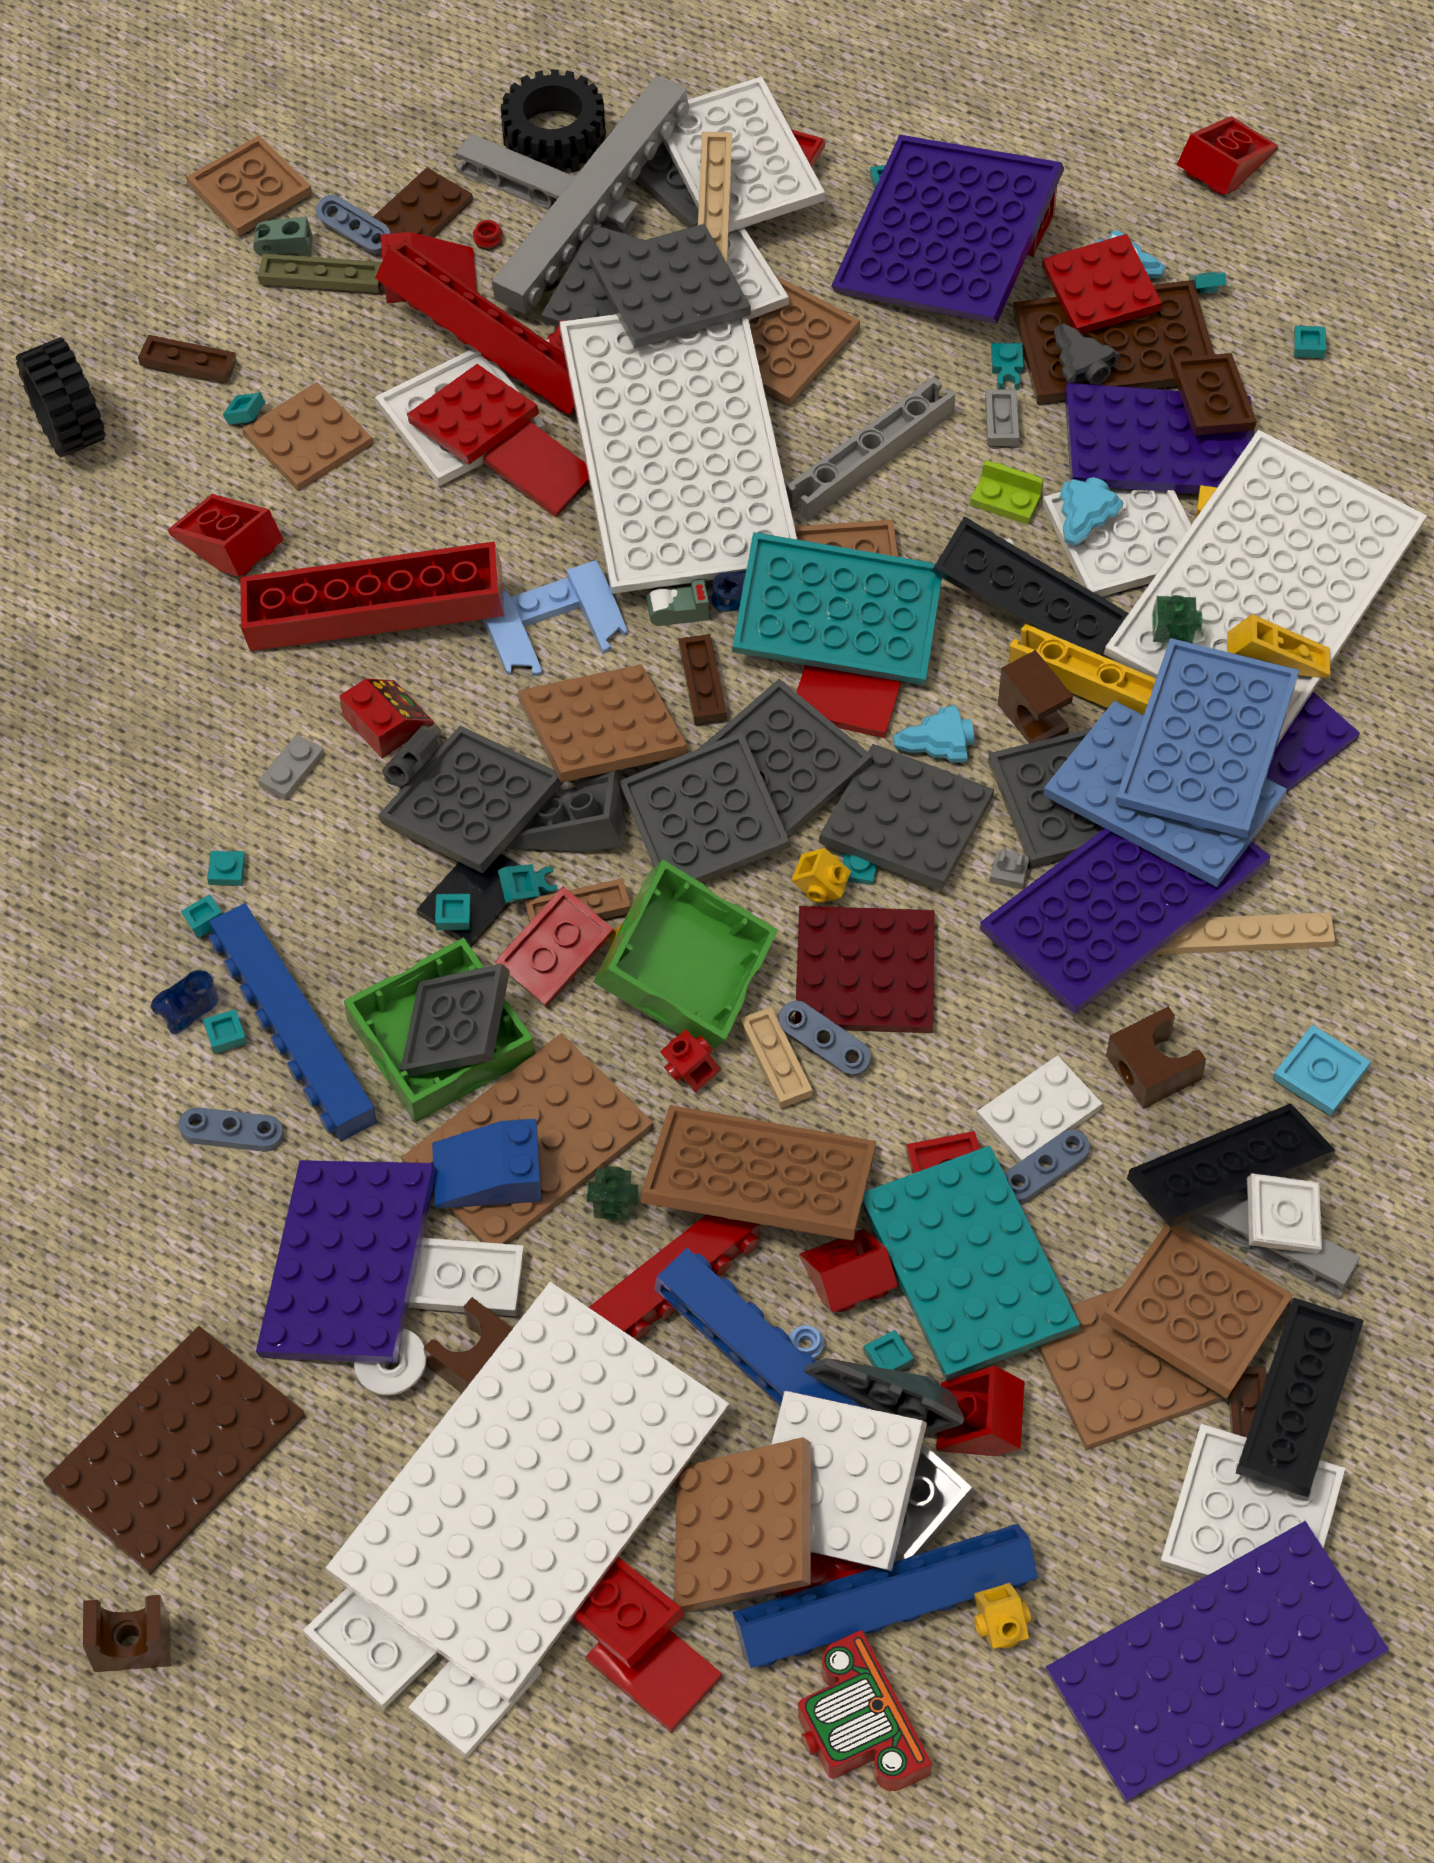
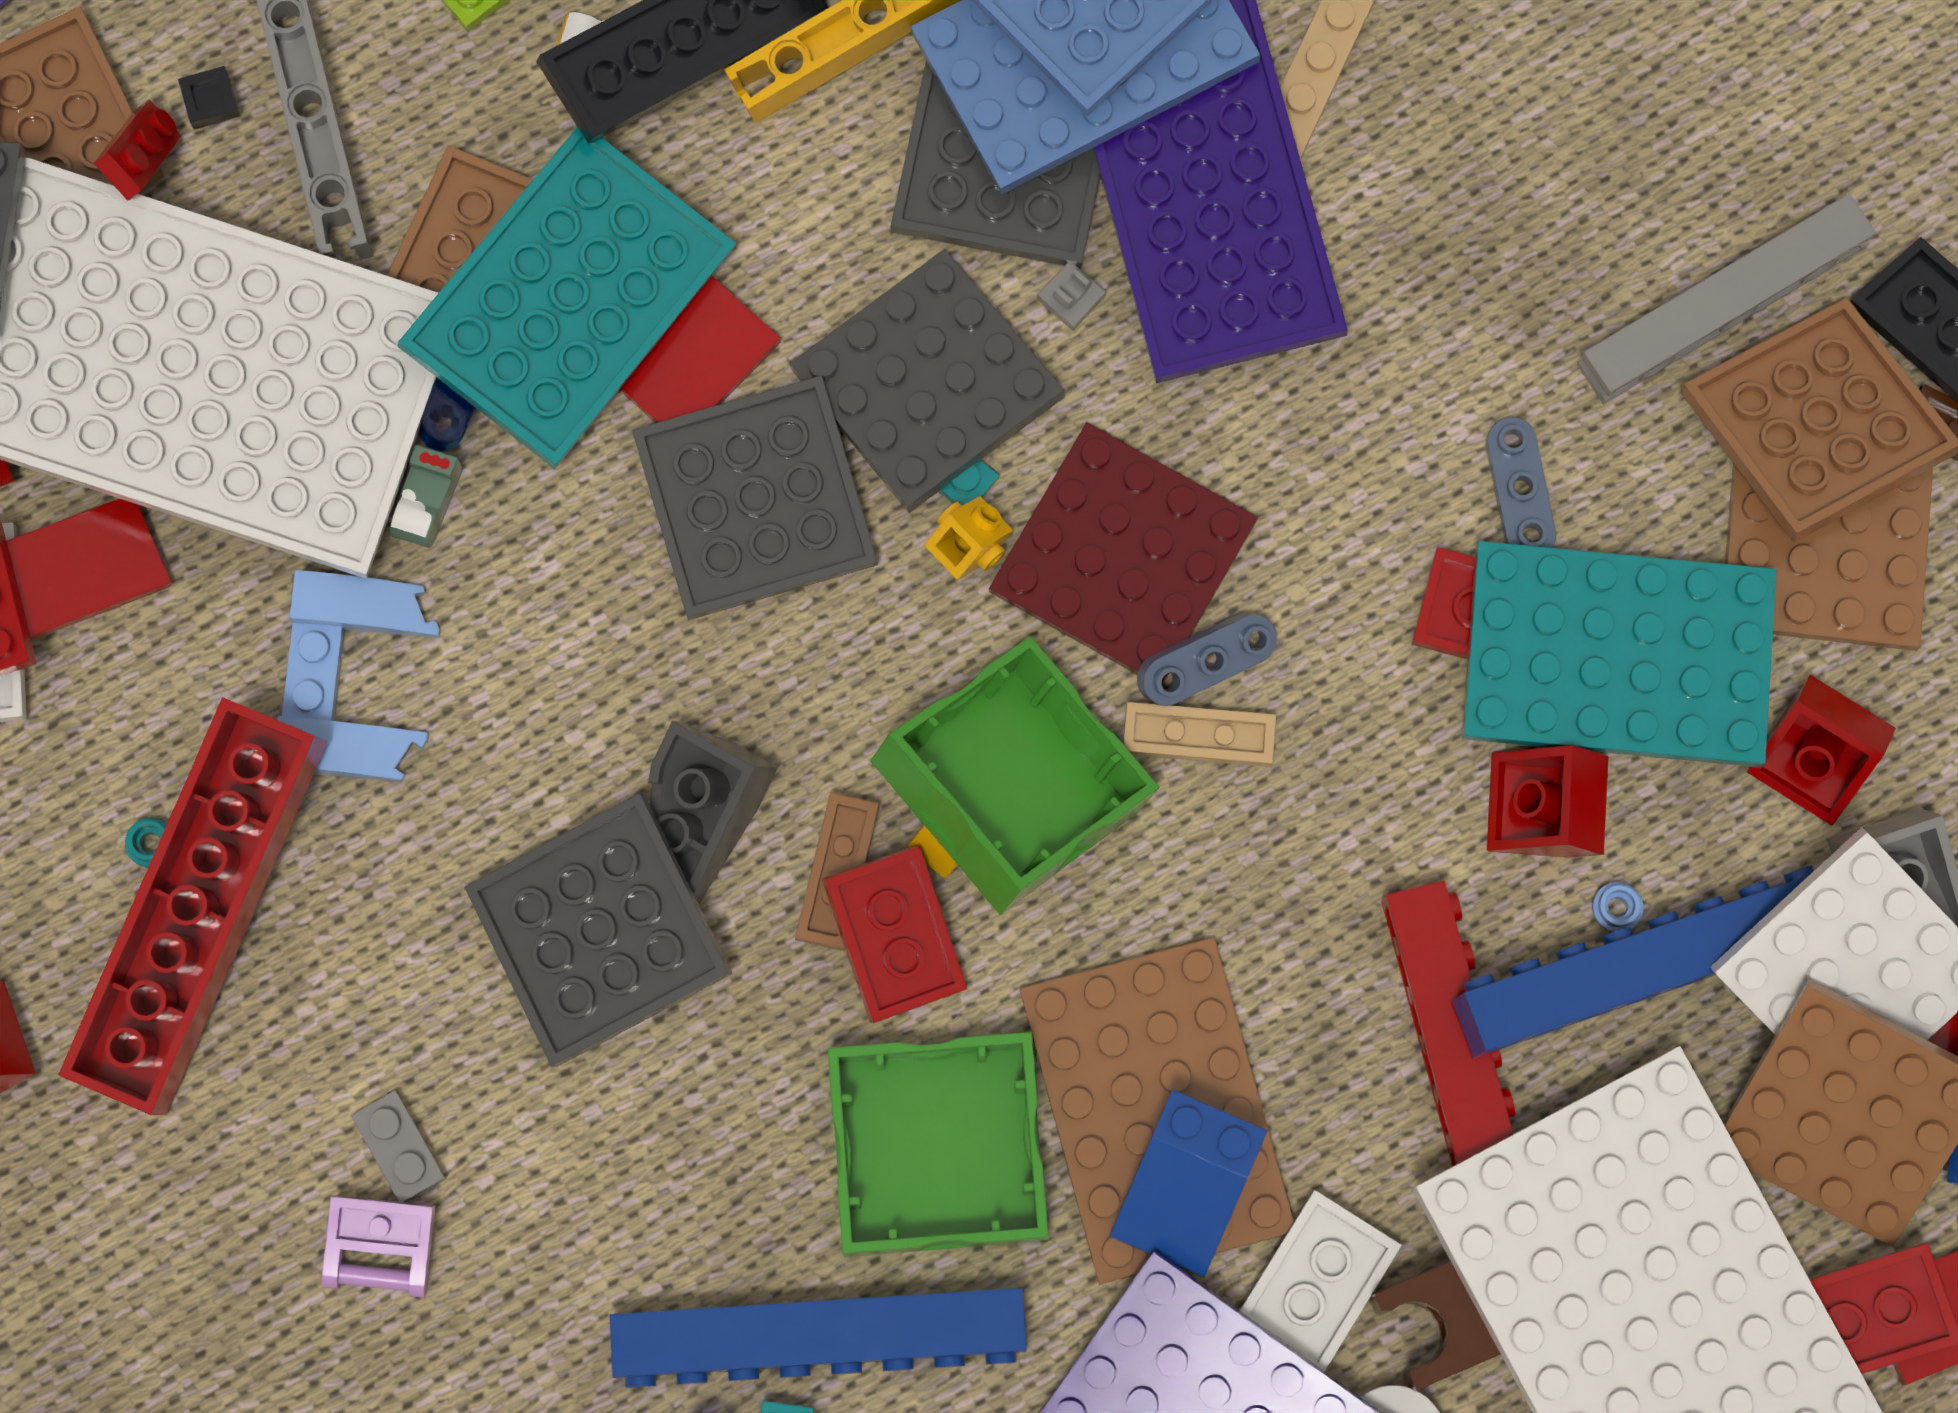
camera: 65 degrees left, 20 degrees up
(200, 914) = (585, 1378): teal plate -> none
(226, 868) = (517, 1311): teal plate -> none
(237, 775) = (380, 1229): none -> lavender plate
(382, 714) = (386, 978): red slope -> none
(412, 756) = (481, 973): dark grey rock -> none
(453, 912) = (769, 1041): teal plate -> none
(455, 1020) = (951, 1120): dark grey plate -> none
(485, 895) = (753, 1013): black tile -> none
(523, 883) = (770, 927): teal plate -> none
(601, 723) = (574, 698): medium nougat plate -> none
(612, 1193) = (1291, 1058): clear green brick -> none
(690, 1060) = (1168, 834): red brick -> none
(702, 679) = (563, 528): reddish brown plate -> none
(706, 810) = (791, 636): dark grey plate -> none
(759, 1172) = (1374, 843): medium nougat plate -> none
(789, 372) = (138, 149): none -> red plate
(847, 402) = (209, 97): none -> black plate
(889, 1352) = (1686, 816): teal plate -> none
(891, 1392) = (1771, 832): dark grey wedge -> none
(939, 736) = (825, 271): medium azure rock -> none
(1031, 697) = (852, 123): reddish brown piece -> none
(1039, 1109) = (1438, 452): white plate -> none
(1144, 1068) = (1449, 295): reddish brown piece -> none
(1218, 1166) = (1659, 272): black plate -> none
(1284, 1213) = (1763, 248): white plate -> none
(1321, 1070) = (1561, 87): medium azure plate -> none

